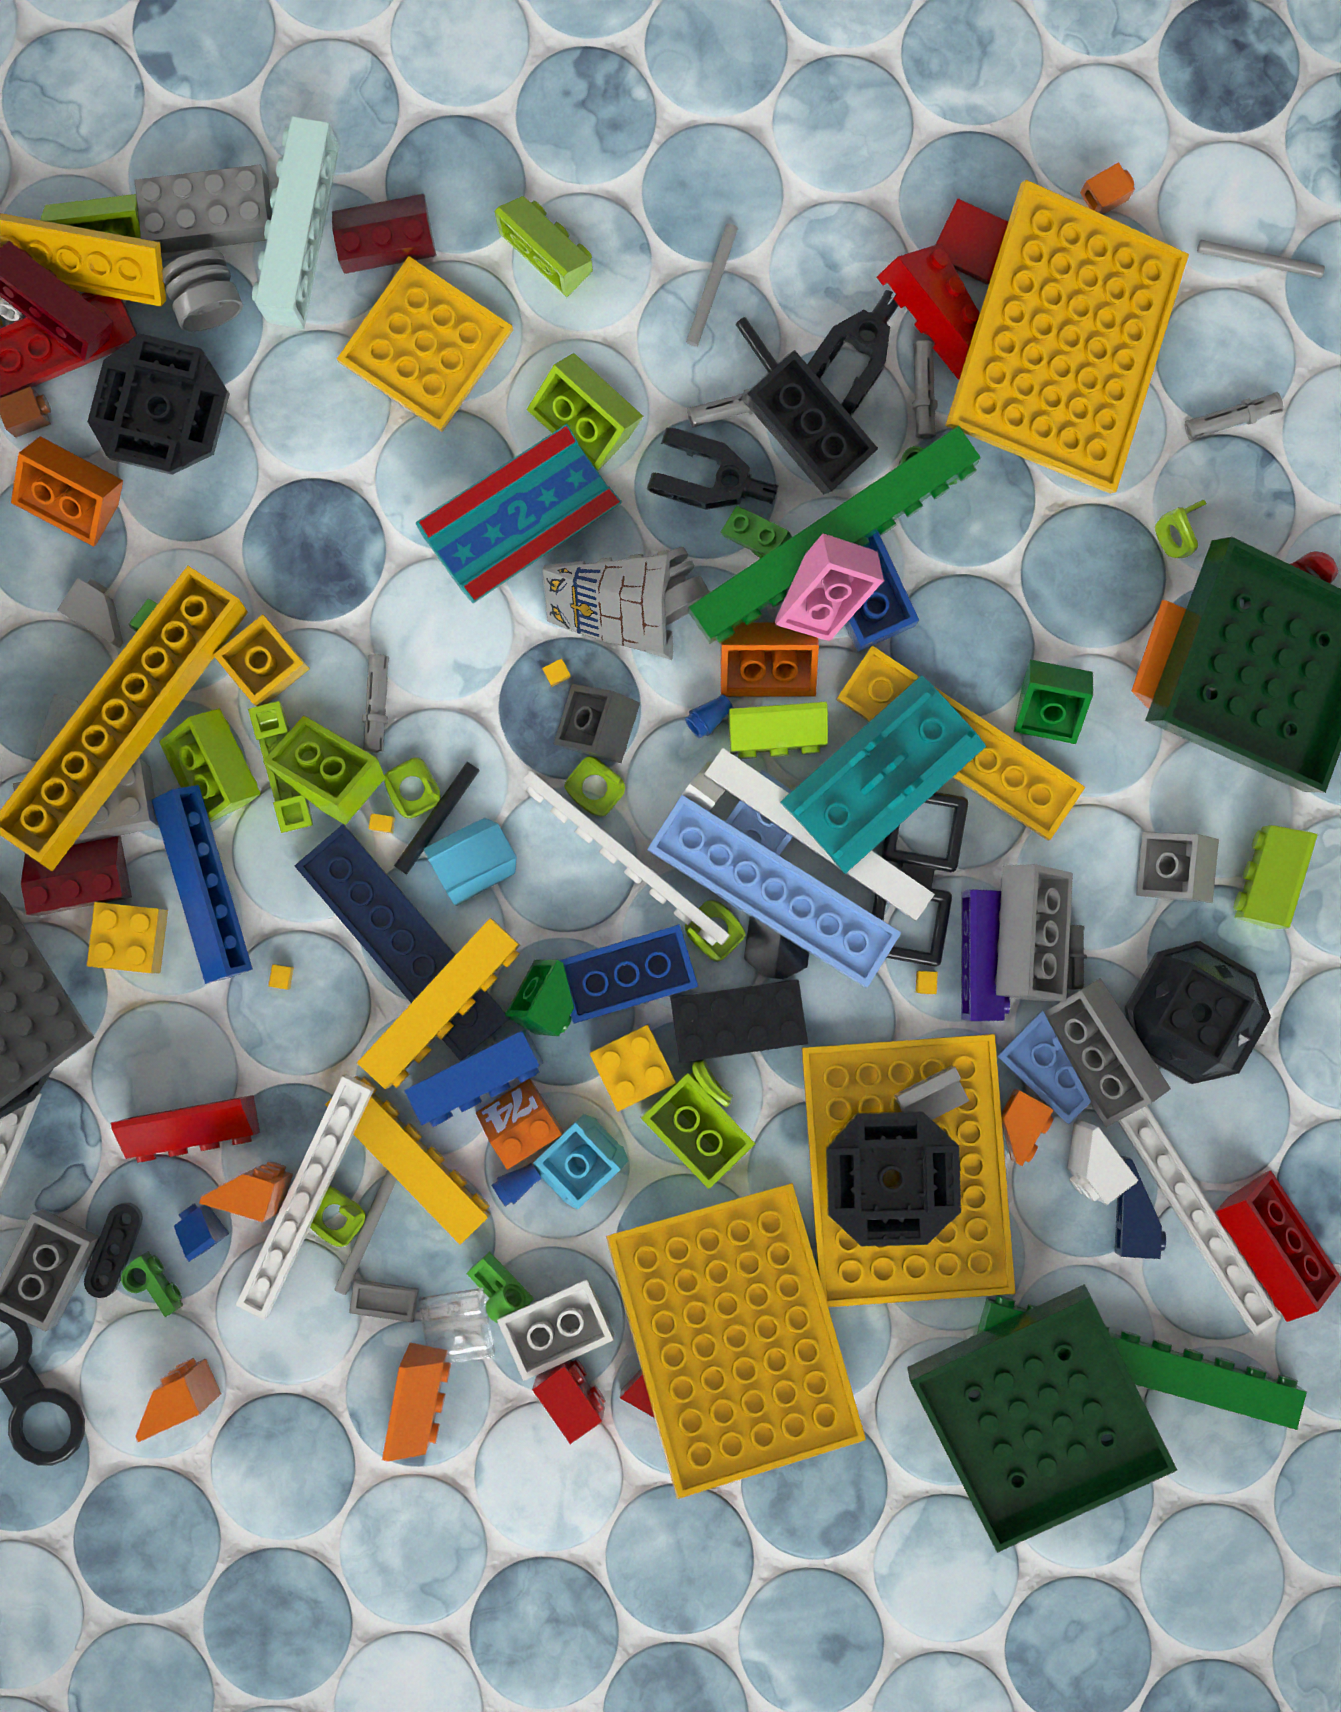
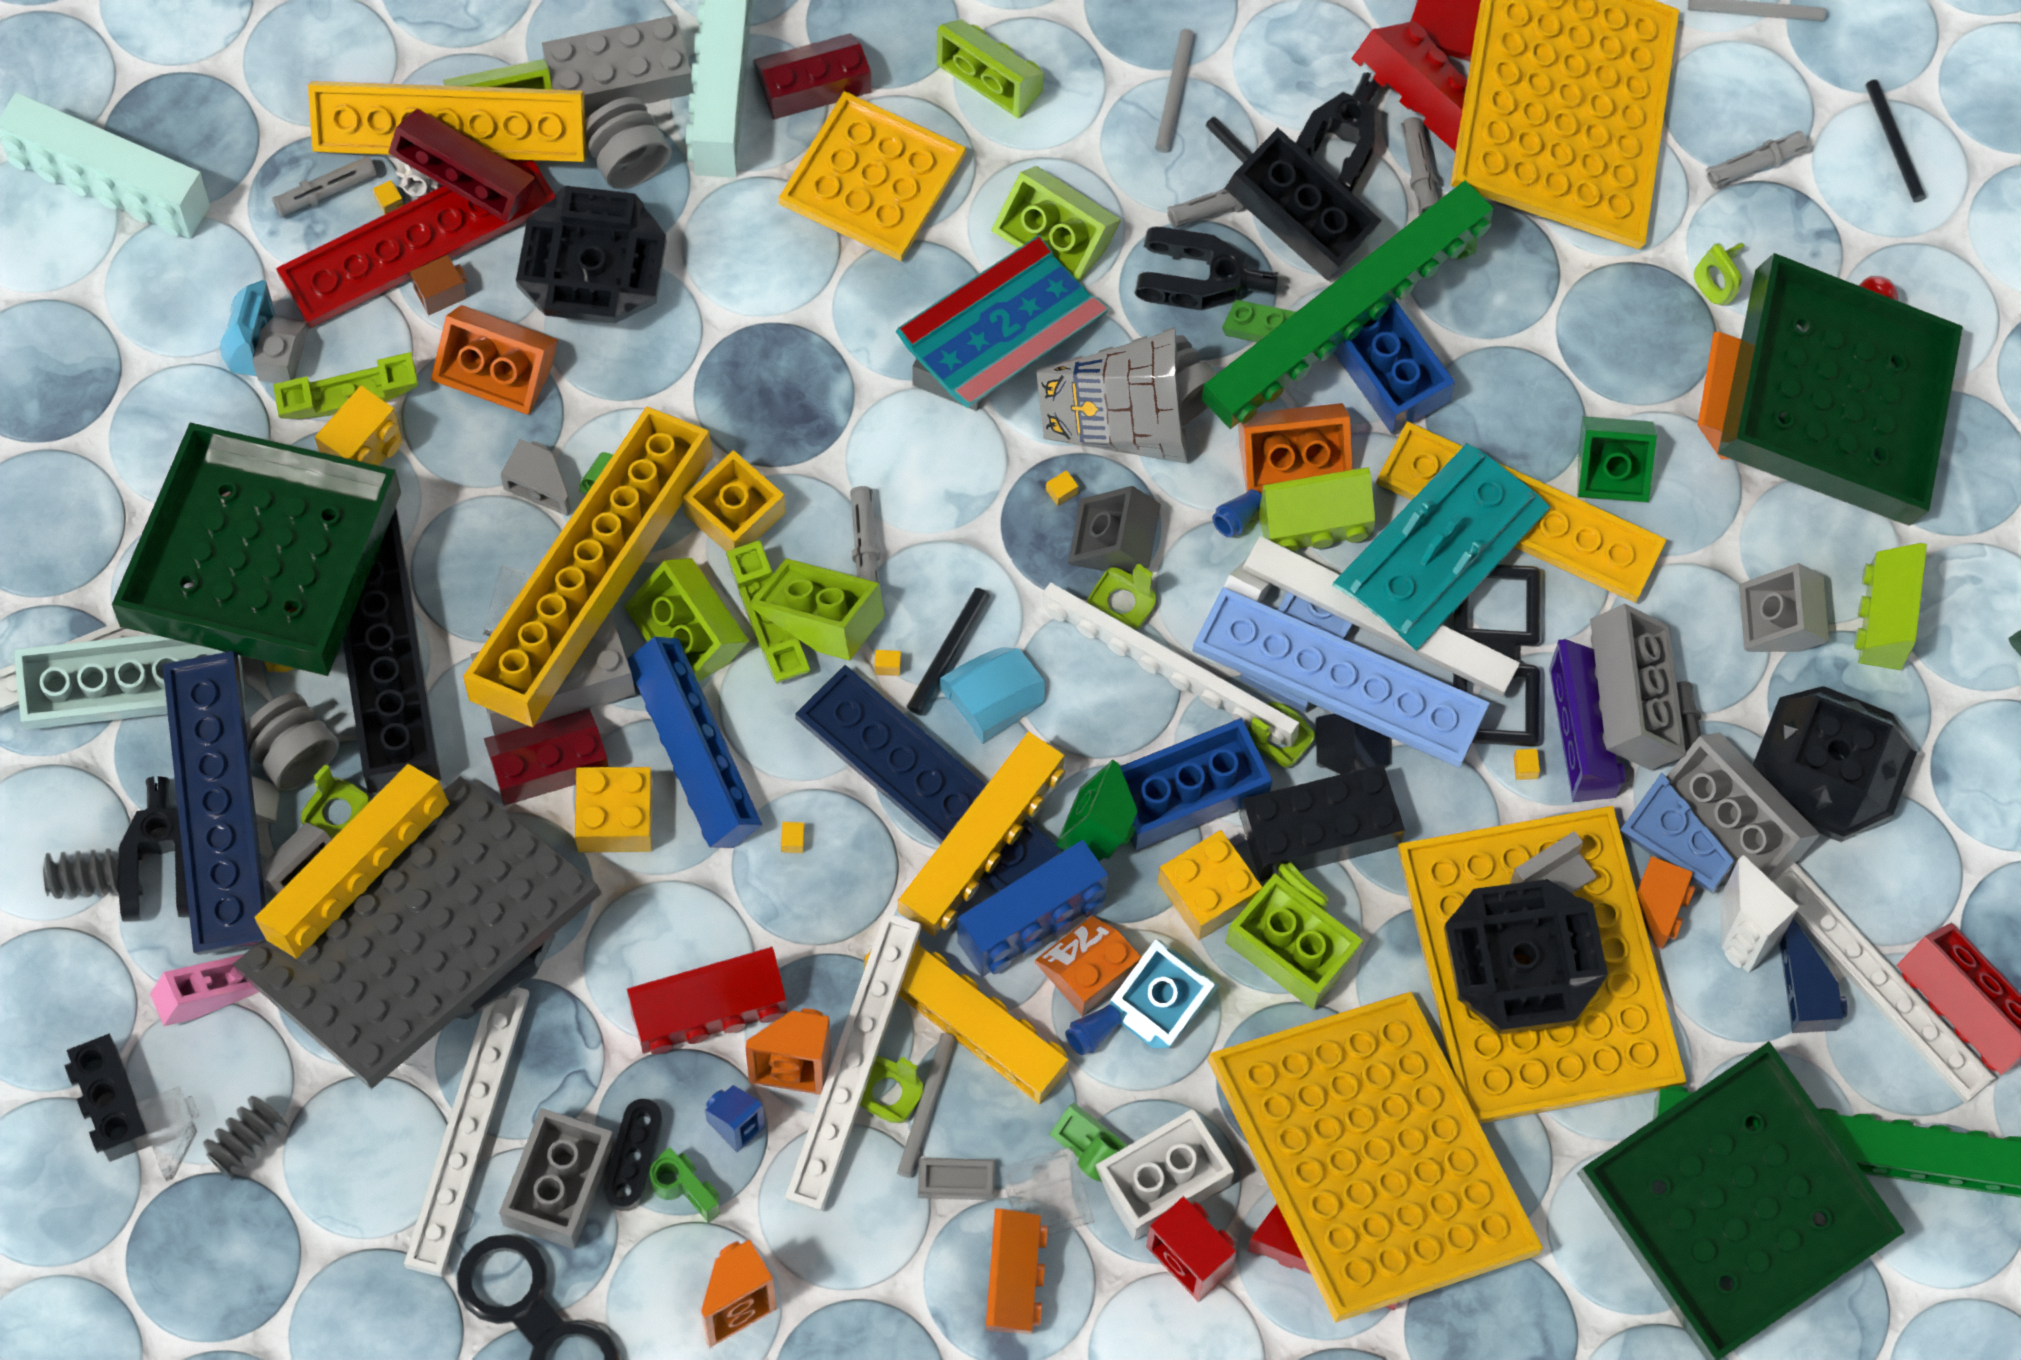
camera: 10 degrees left, 20 degrees down
(417, 768) = (919, 602): lime piece -> none
(830, 587) = (1353, 350): bright pink slope -> none

